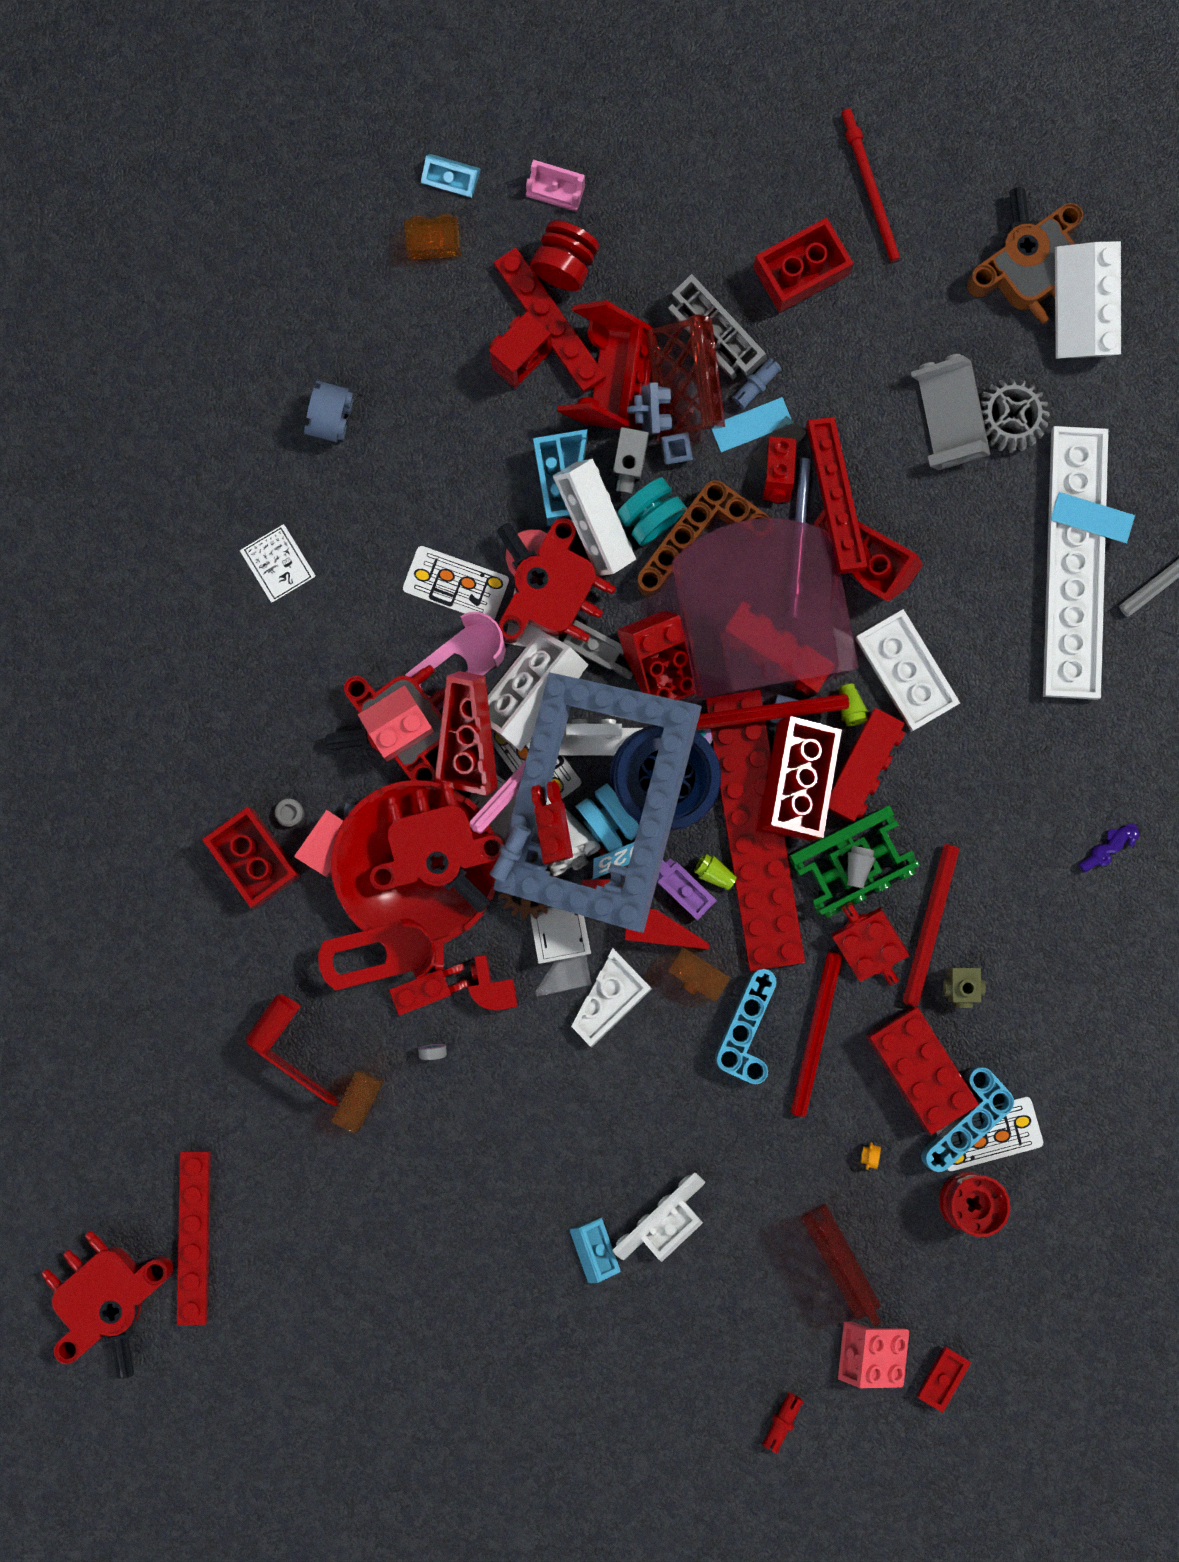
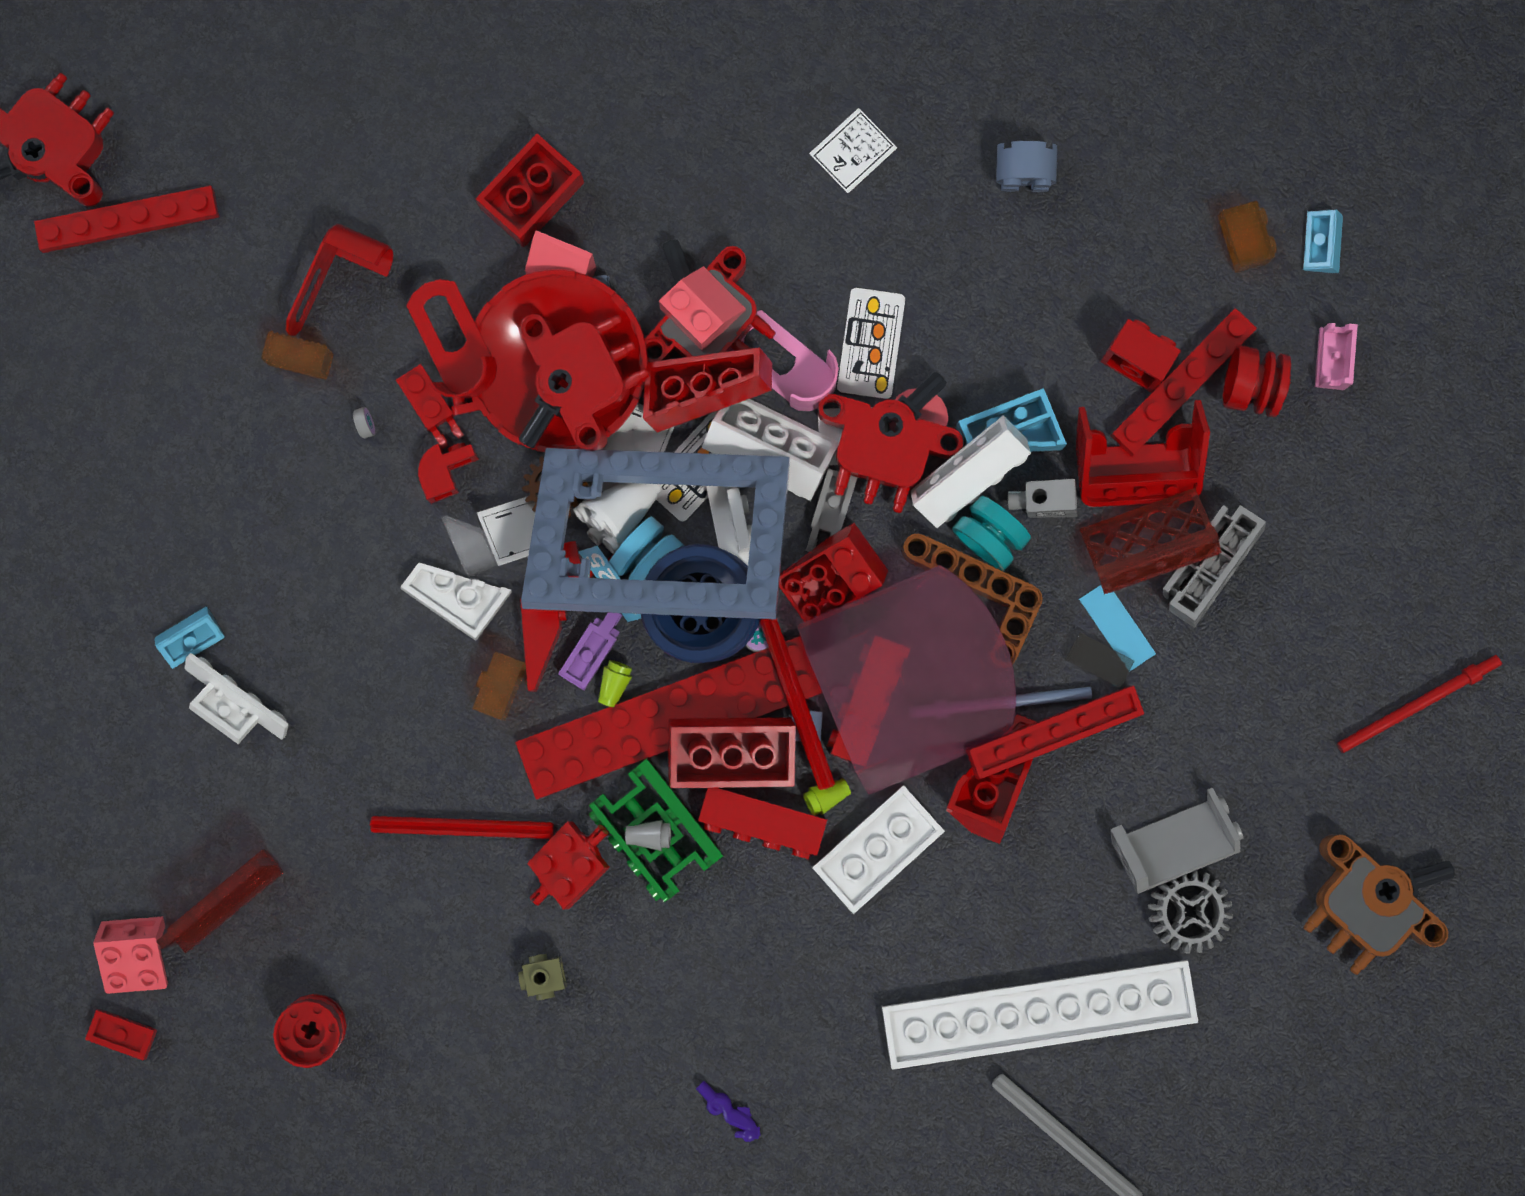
camera: 75 degrees right, 0 degrees up
(289, 812) = (587, 220): light grey tile -> none
(497, 802) = (637, 431): bright pink axle -> none
(510, 852) = (585, 455): sand blue pin -> none
(551, 824) = (624, 491): red hinge -> none
(647, 408) = (1093, 514): sand blue hips -> none
(676, 448) = (1070, 548): sand blue brick -> none
(751, 1023) = (459, 752): medium azure beam -> none
(756, 383) = (1163, 621): sand blue pin -> none
(780, 469) = (1071, 665): red bracket -> none
(783, 1422) = (45, 871): red pin -> none
(802, 265) = (1307, 644): red brick -> none
(870, 1156) = (342, 911): light orange plate -> none
(922, 1070) = (443, 947): red brick -> none
(930, 925) = (604, 929): red axle -> none
(964, 1123) = (395, 1003): medium azure beam -> none
(1010, 1136) = (391, 1036): sticker -> none
(1088, 300) = (1338, 969): white slope -> none
(1092, 517) = (1093, 1023): medium azure sticker -> none

